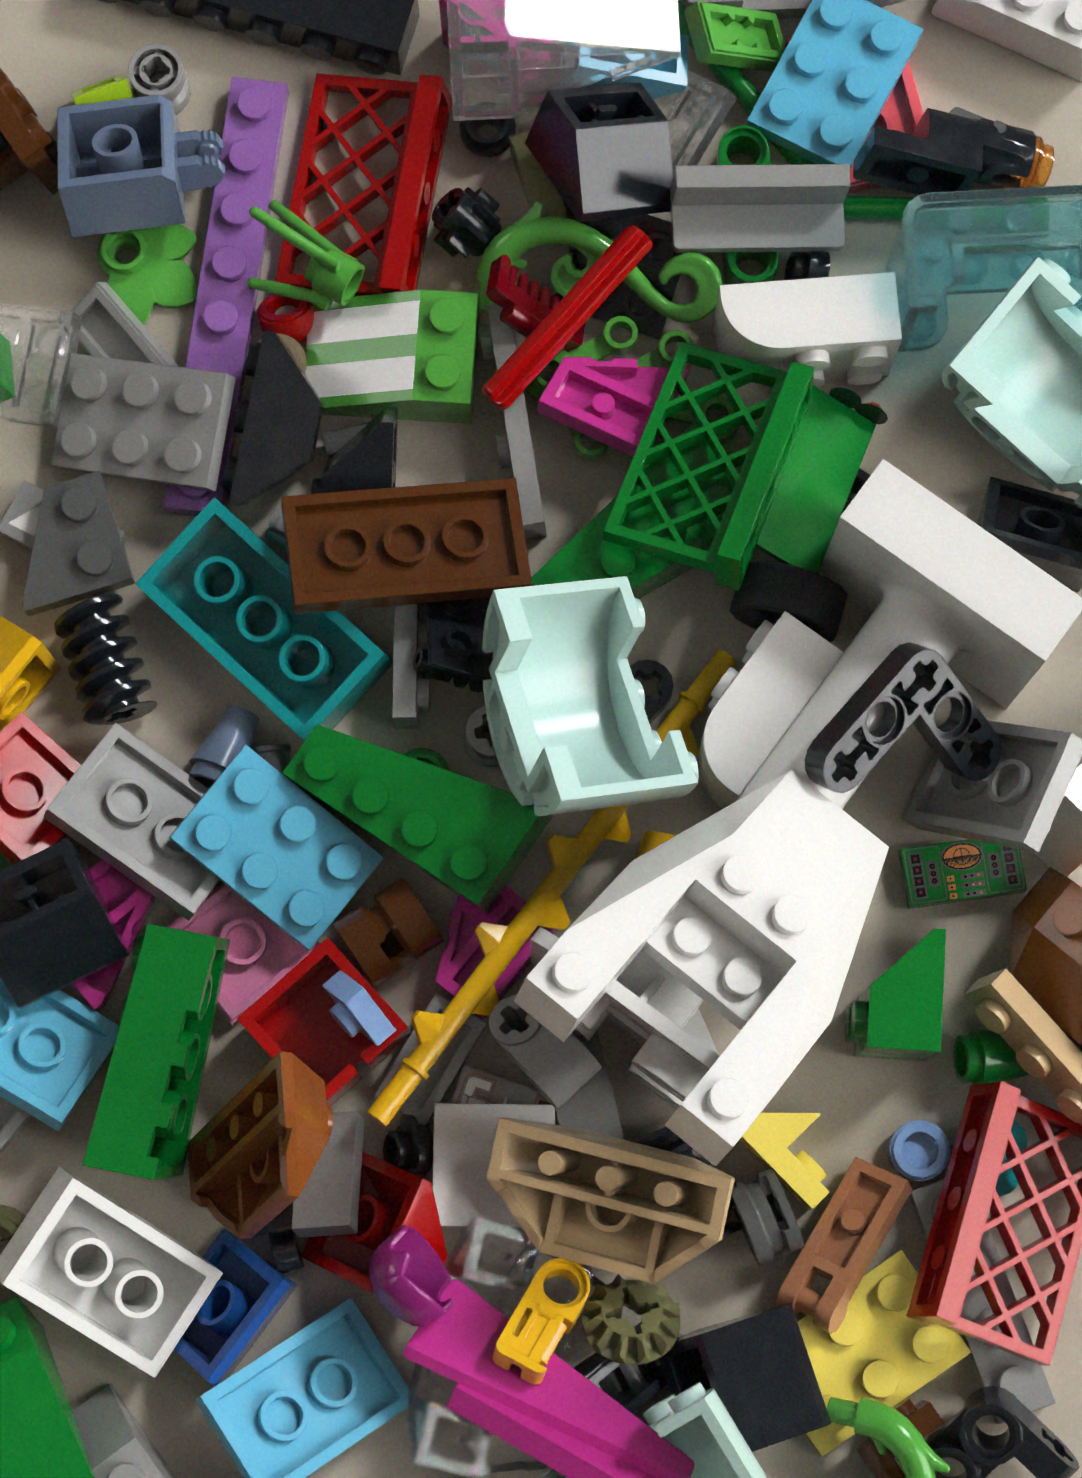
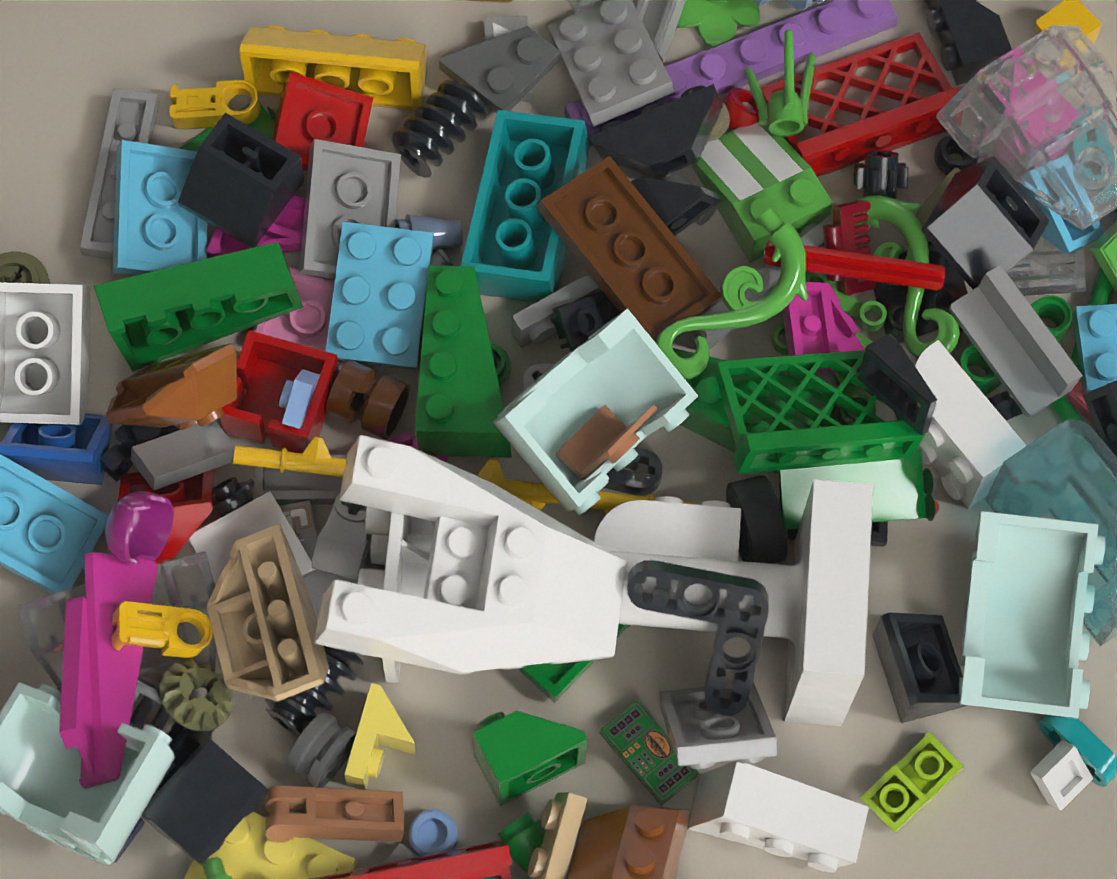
camera: 55 degrees right, 10 degrees down
(520, 457) = (742, 313): none -> bright green plant
(614, 706) = (600, 439): none -> nougat piece
(745, 358) = (898, 383): none -> black slope

